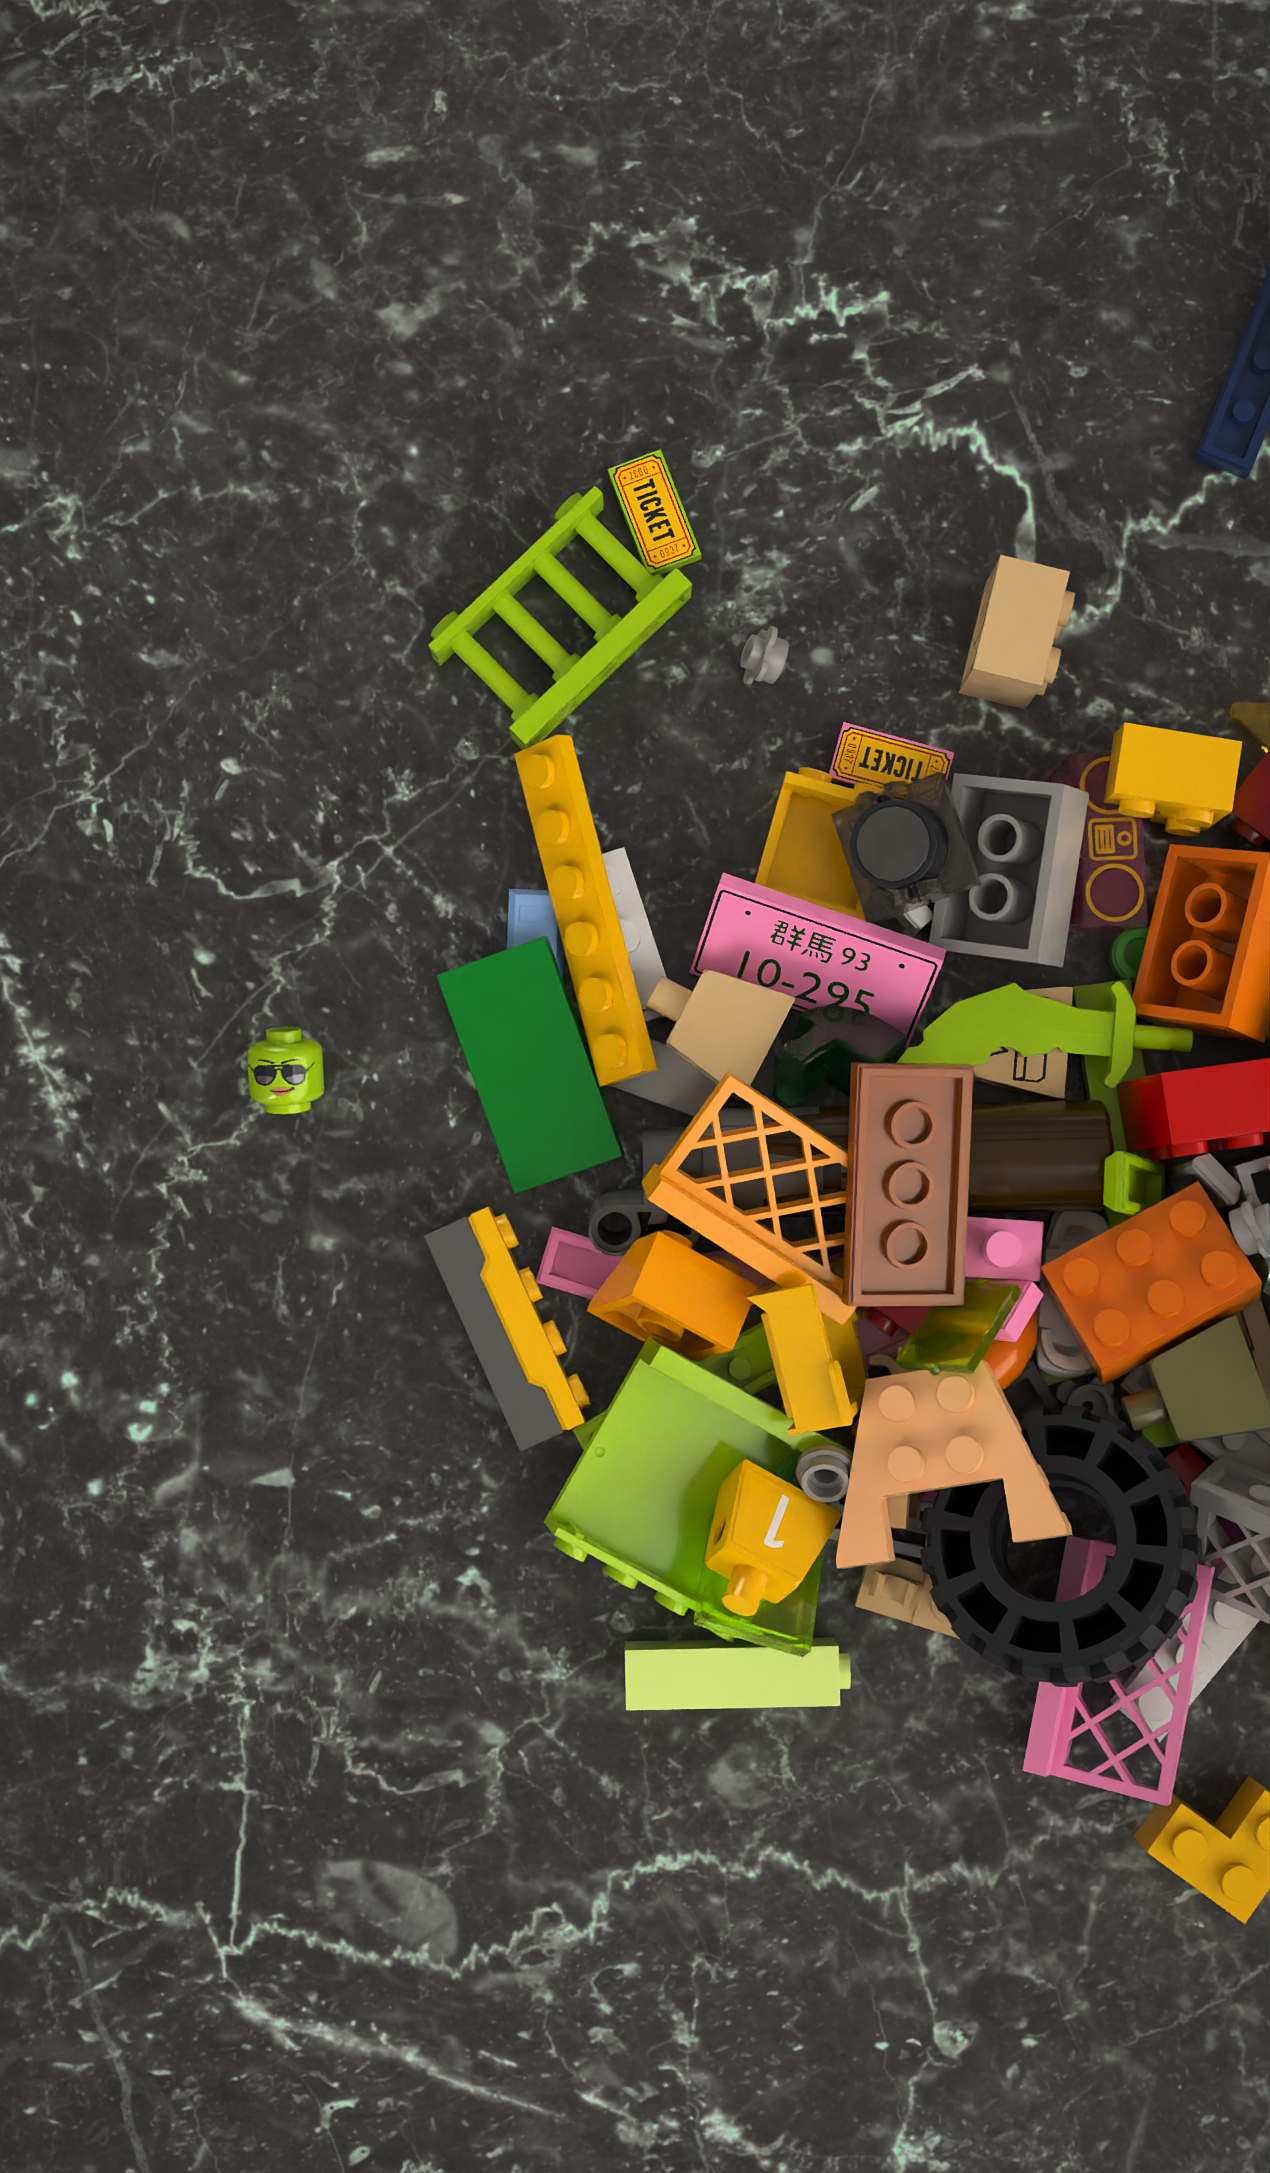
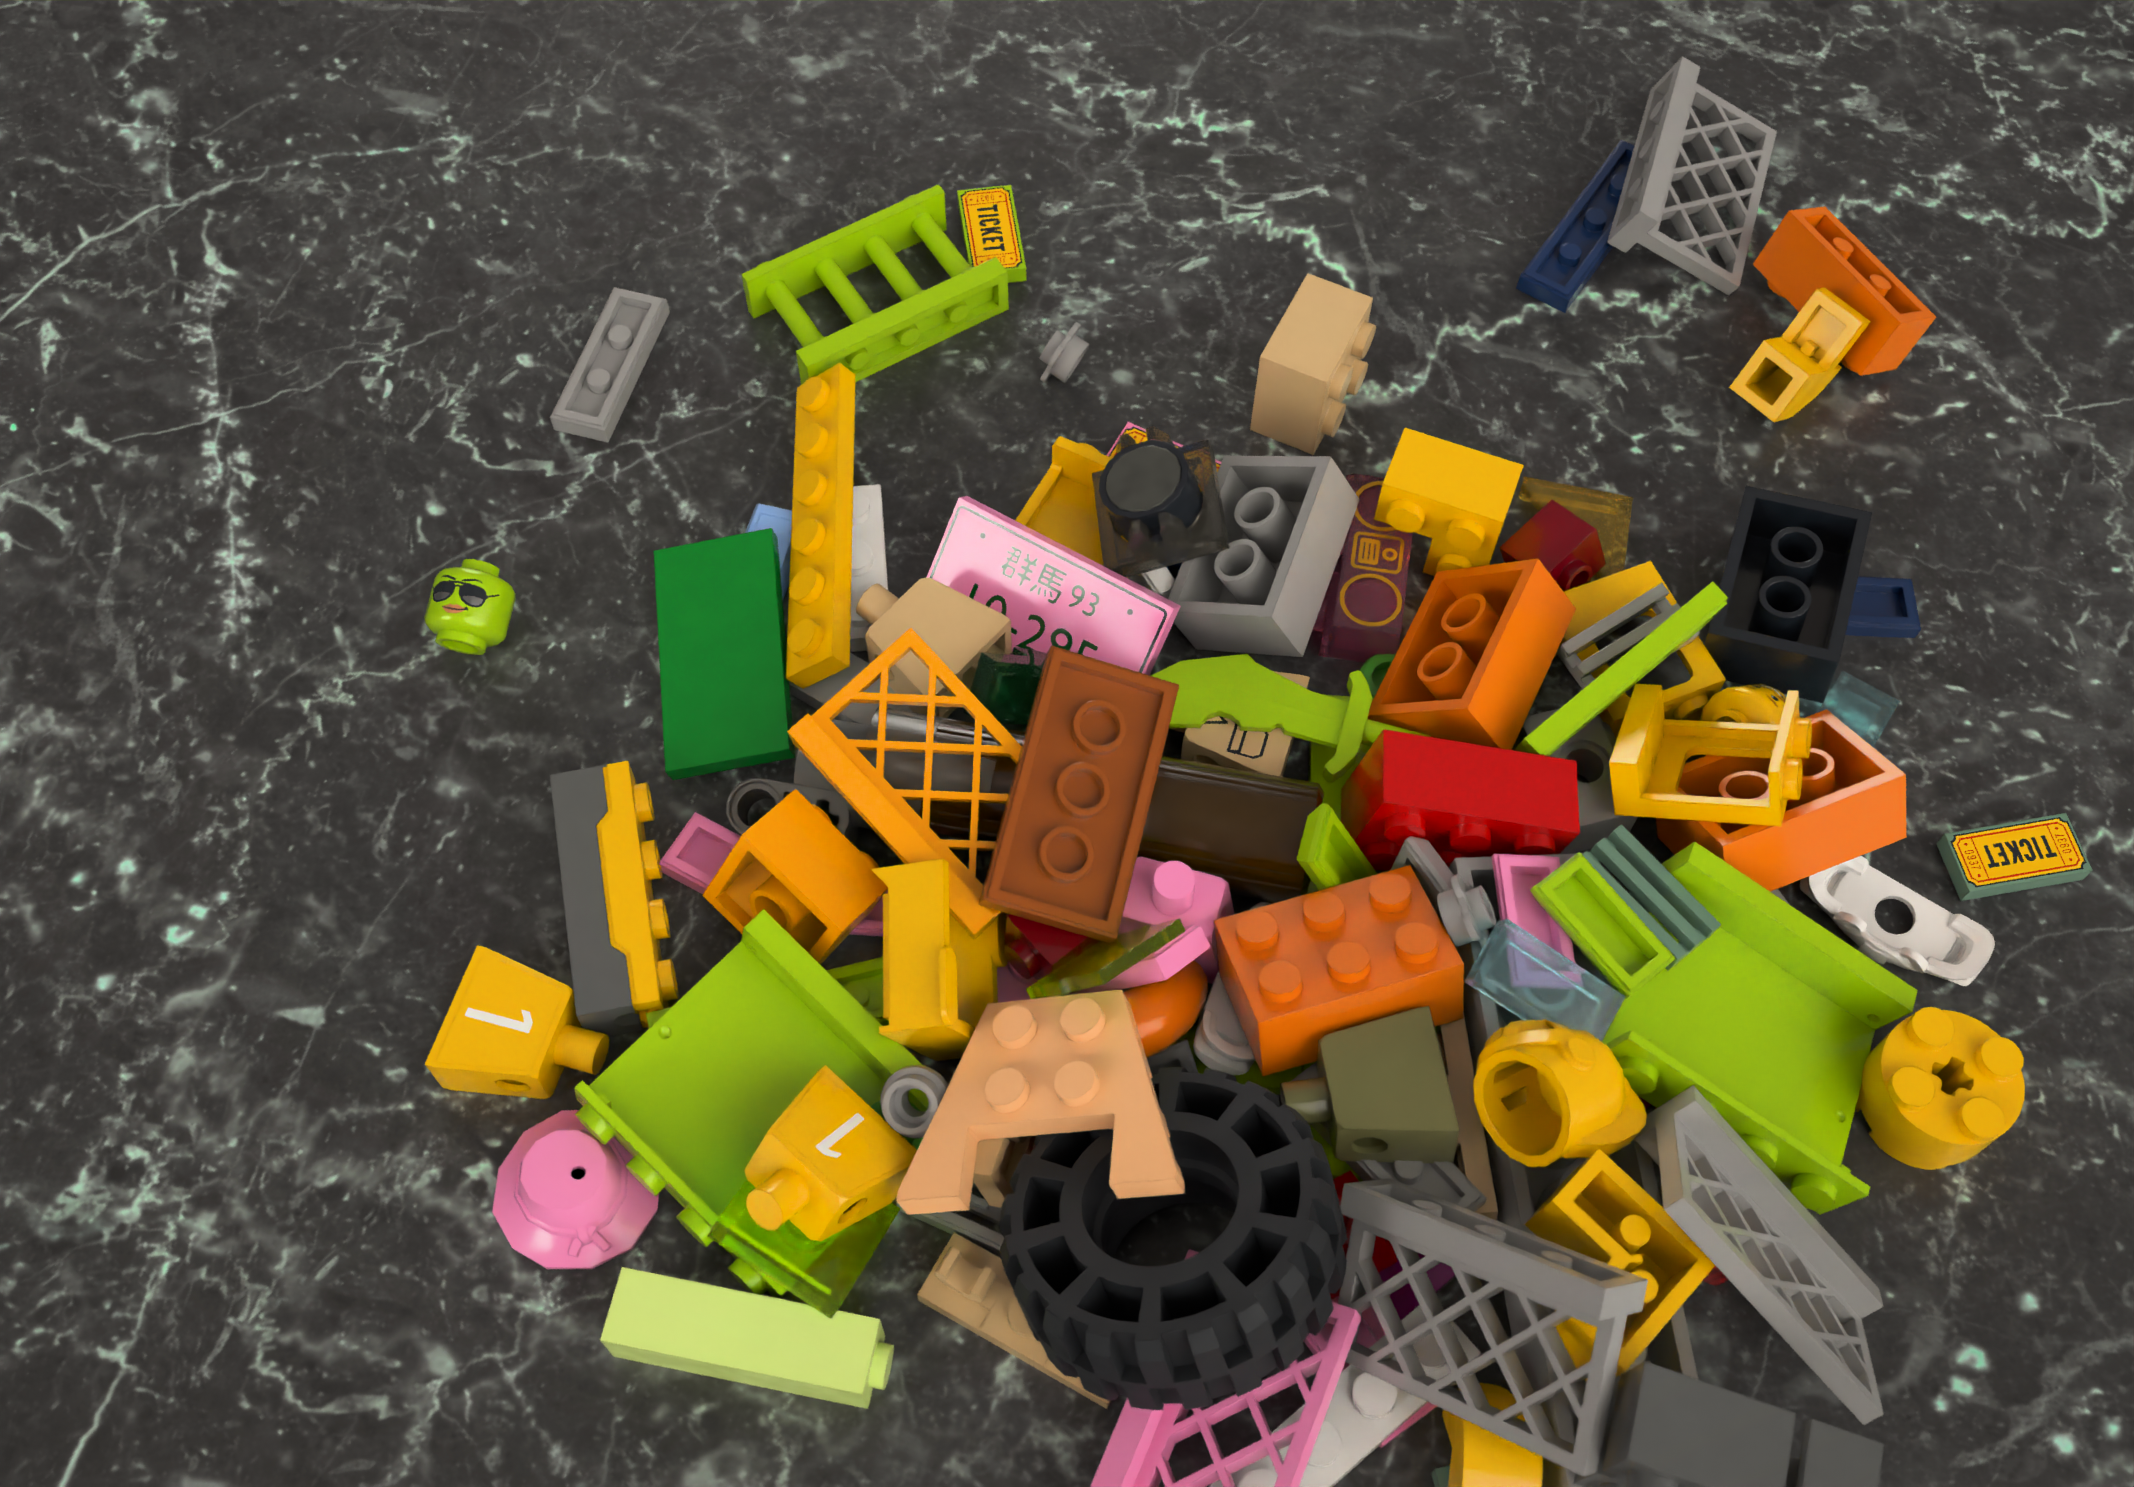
camera: 10 degrees right, 25 degrees down
(319, 757) = (610, 365): none -> light grey tile
(466, 1465) = (511, 1032): none -> yellow torso
(528, 1591) = (563, 1218): none -> bright pink hat

